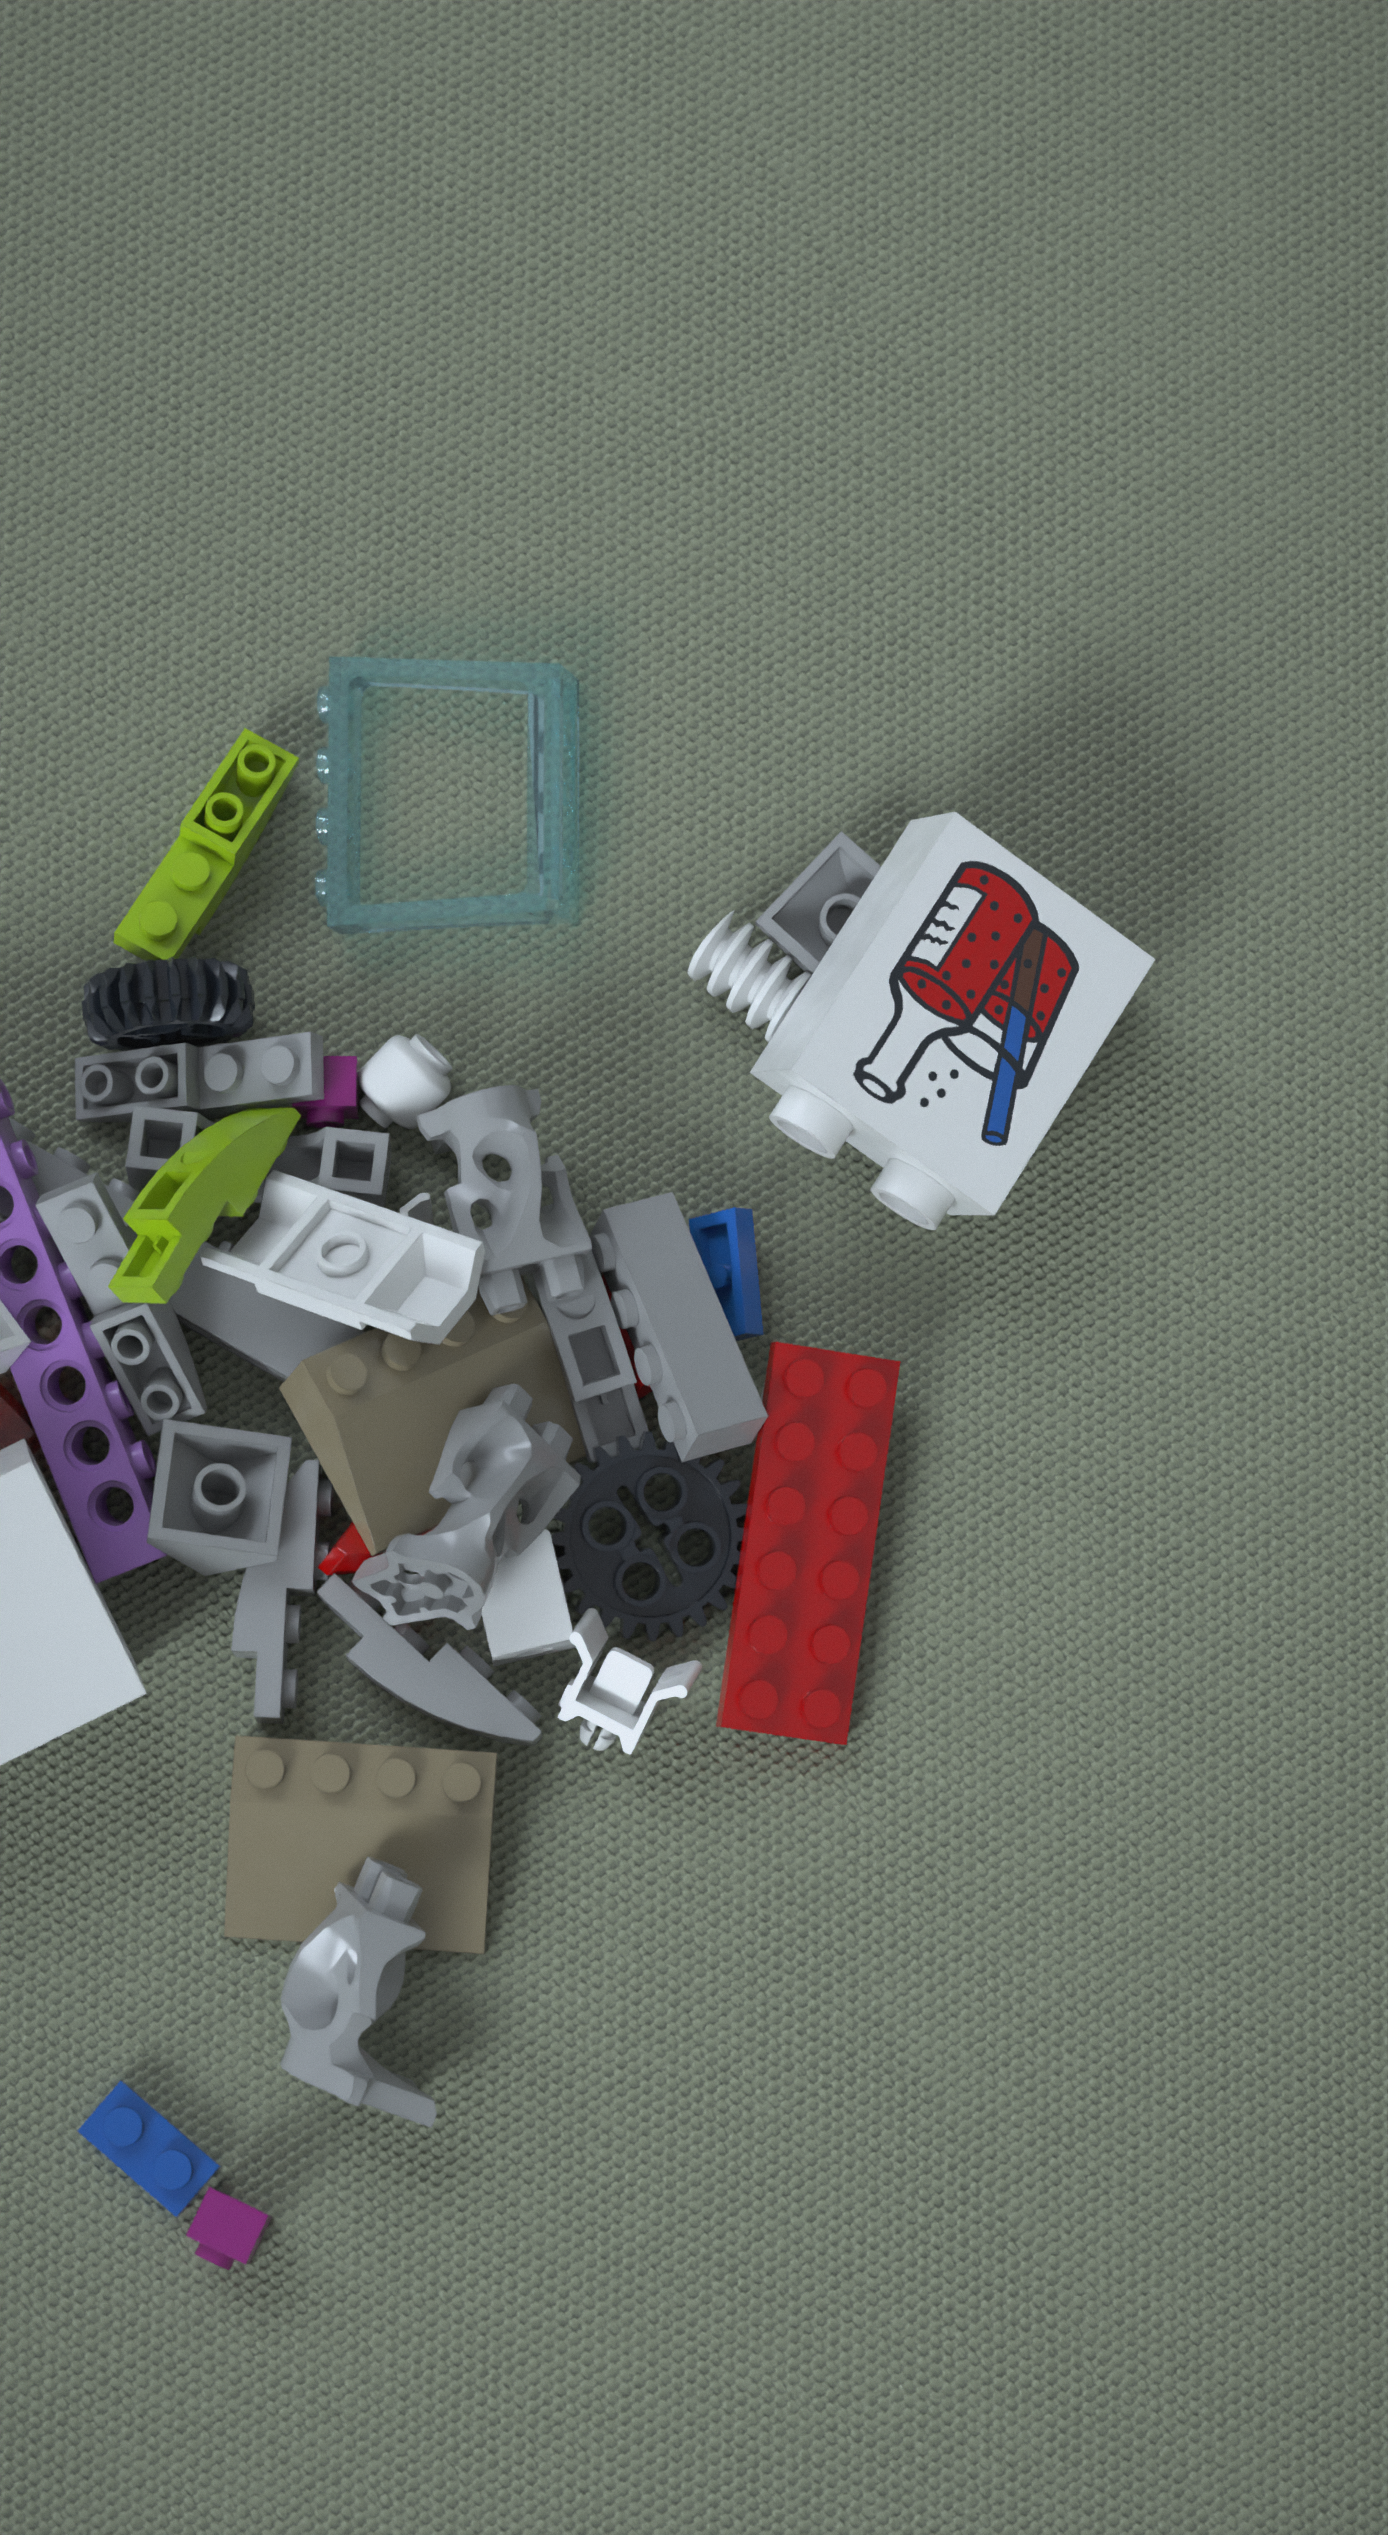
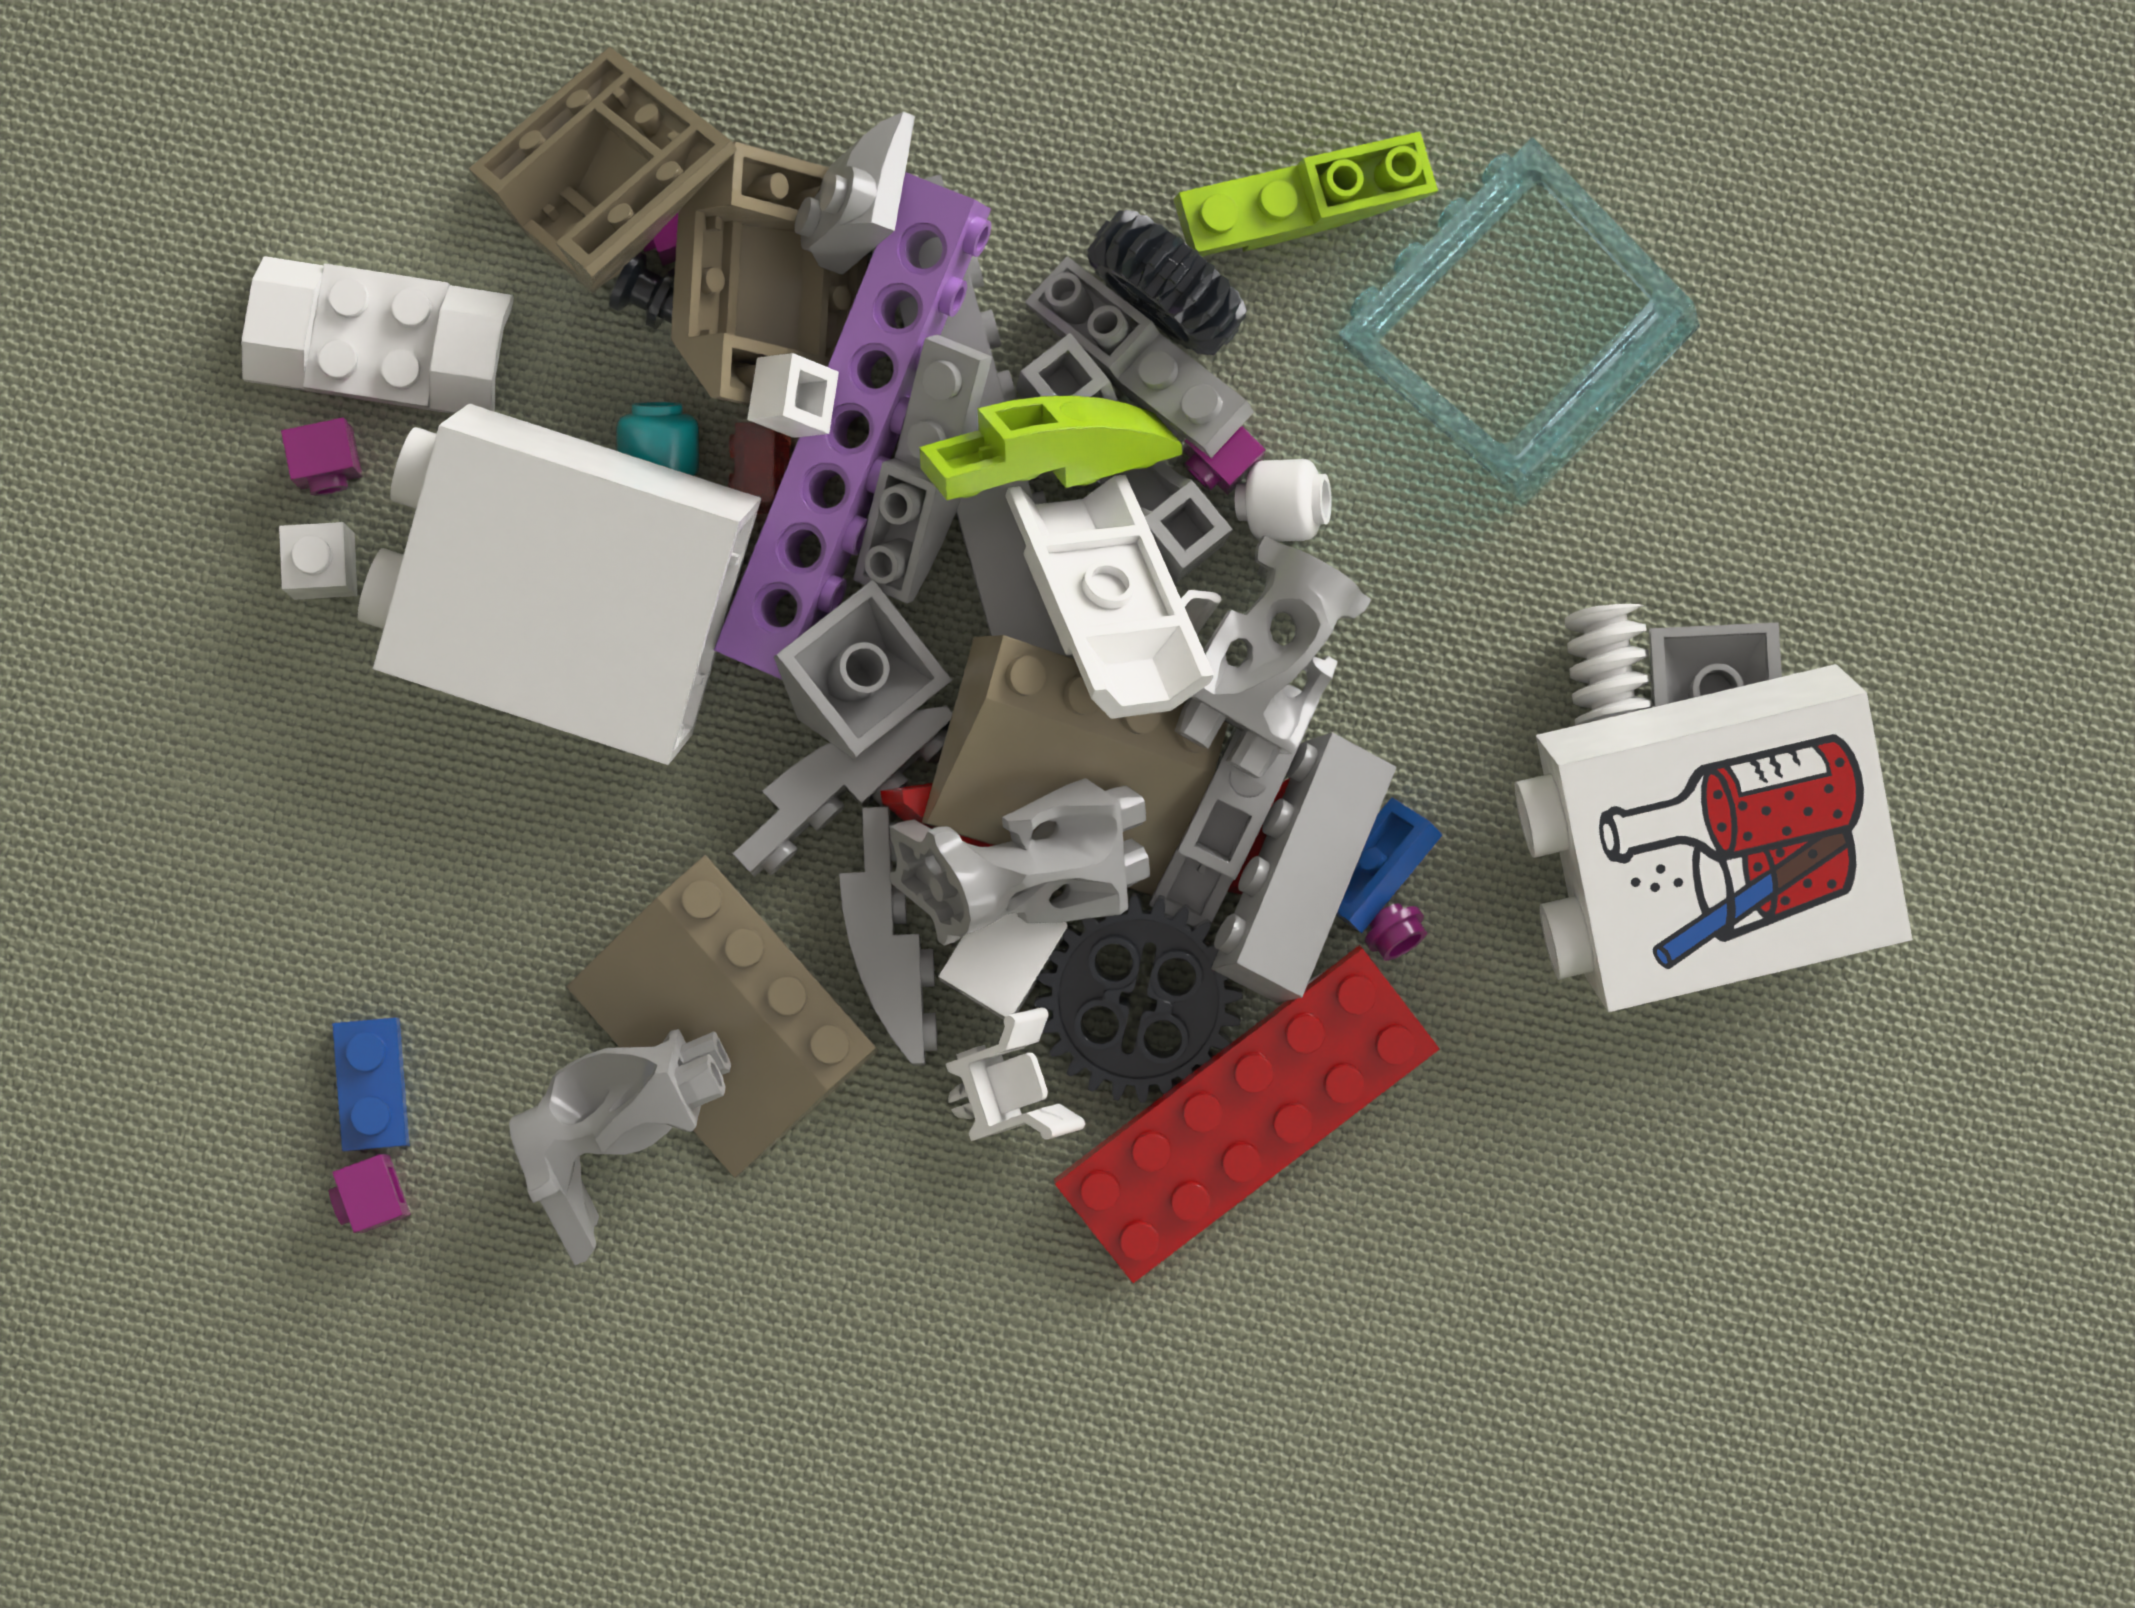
camera: 50 degrees right, 5 degrees up
(786, 1310) = (1395, 931): none -> magenta plate

